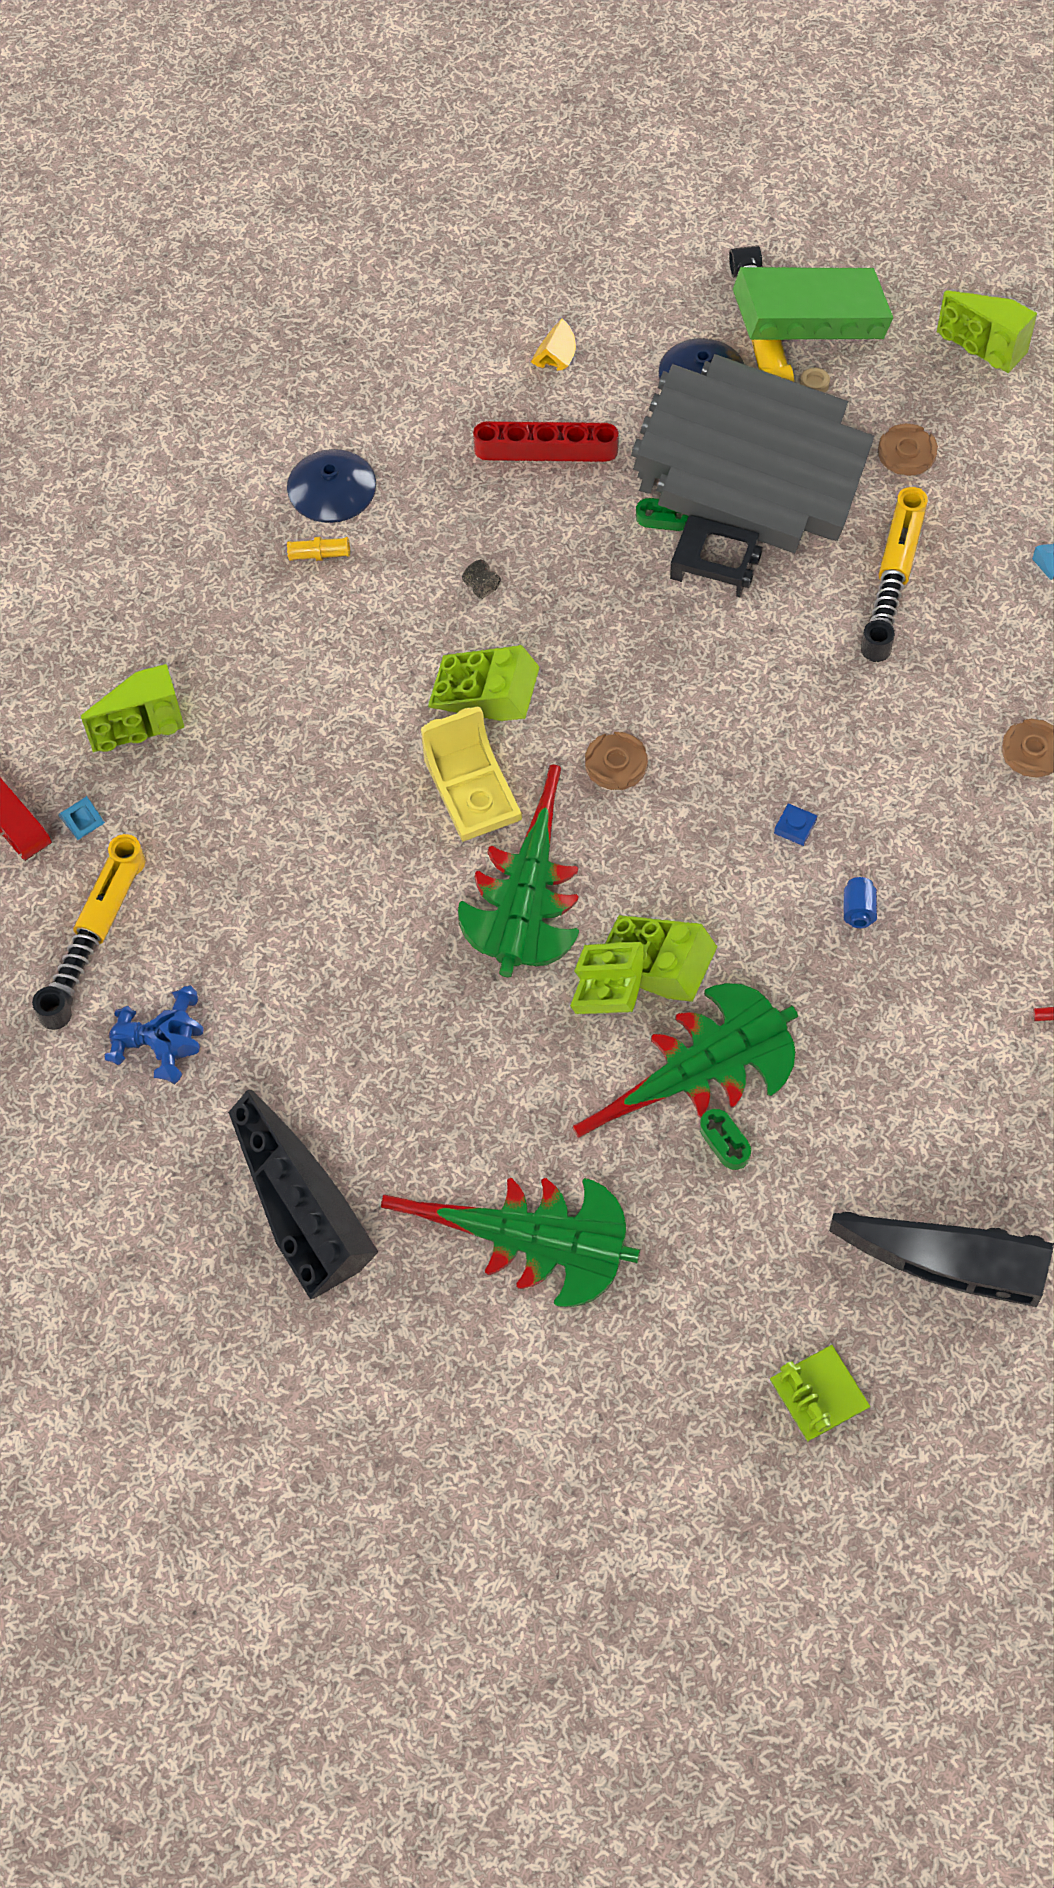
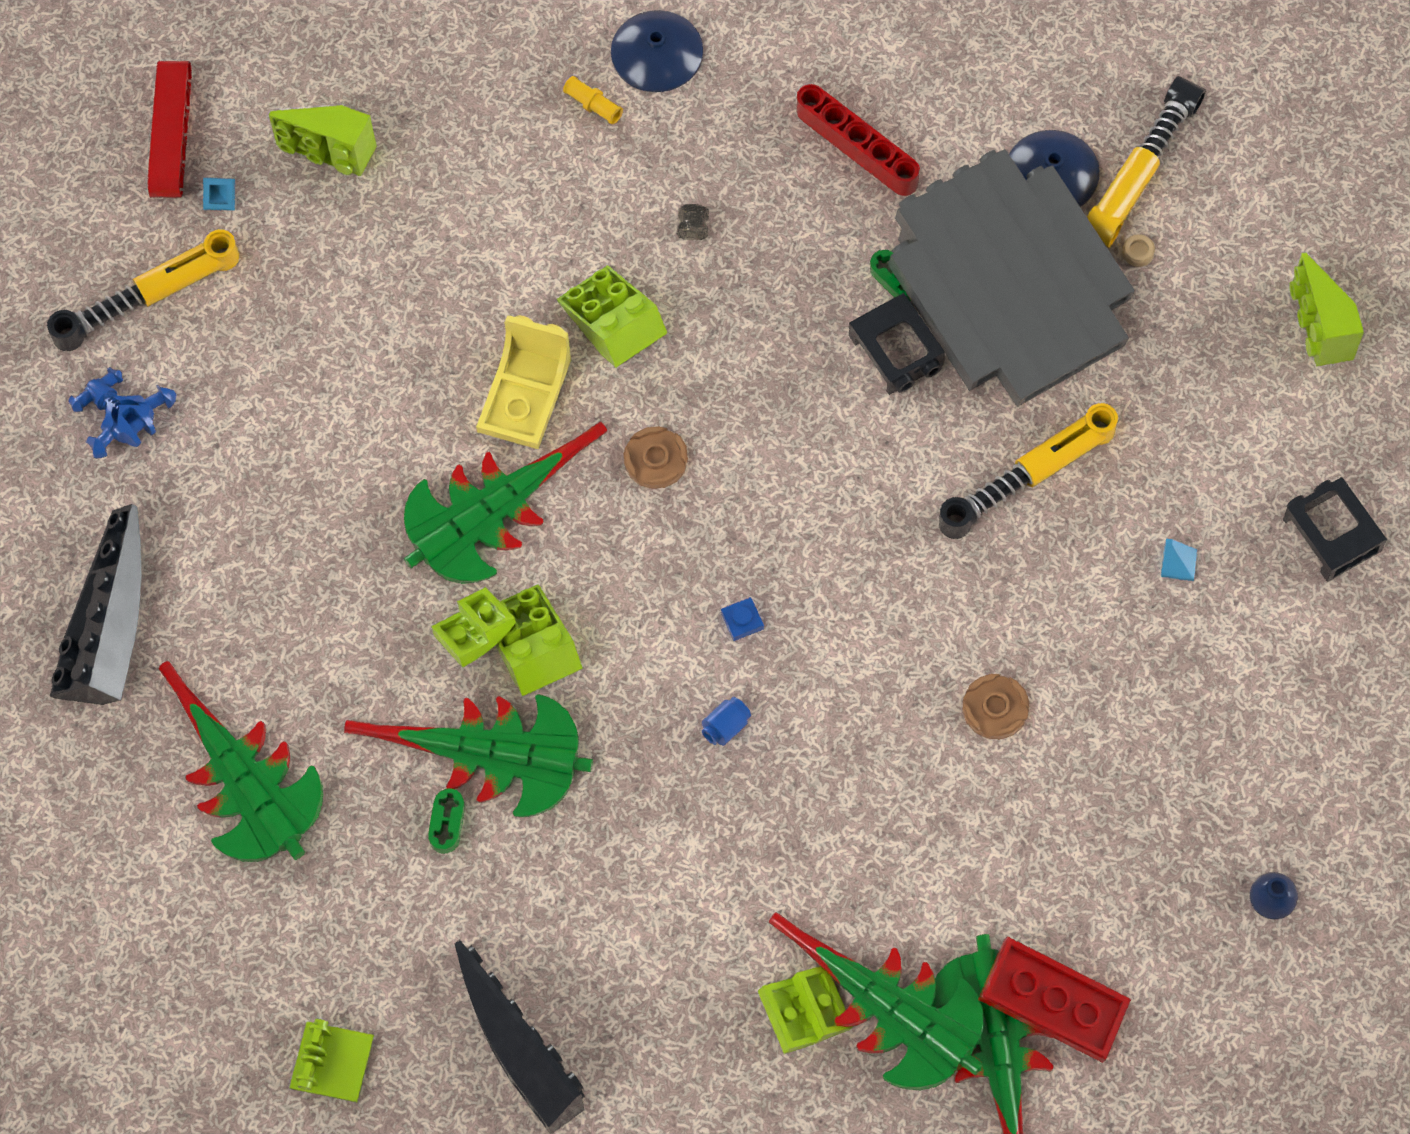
camera: 40 degrees right, 5 degrees up
(556, 348) = (950, 61): yellow brick -> none
(812, 303) = (1193, 179): bright green brick -> none
(899, 452) = (1146, 370): medium nougat tile -> none

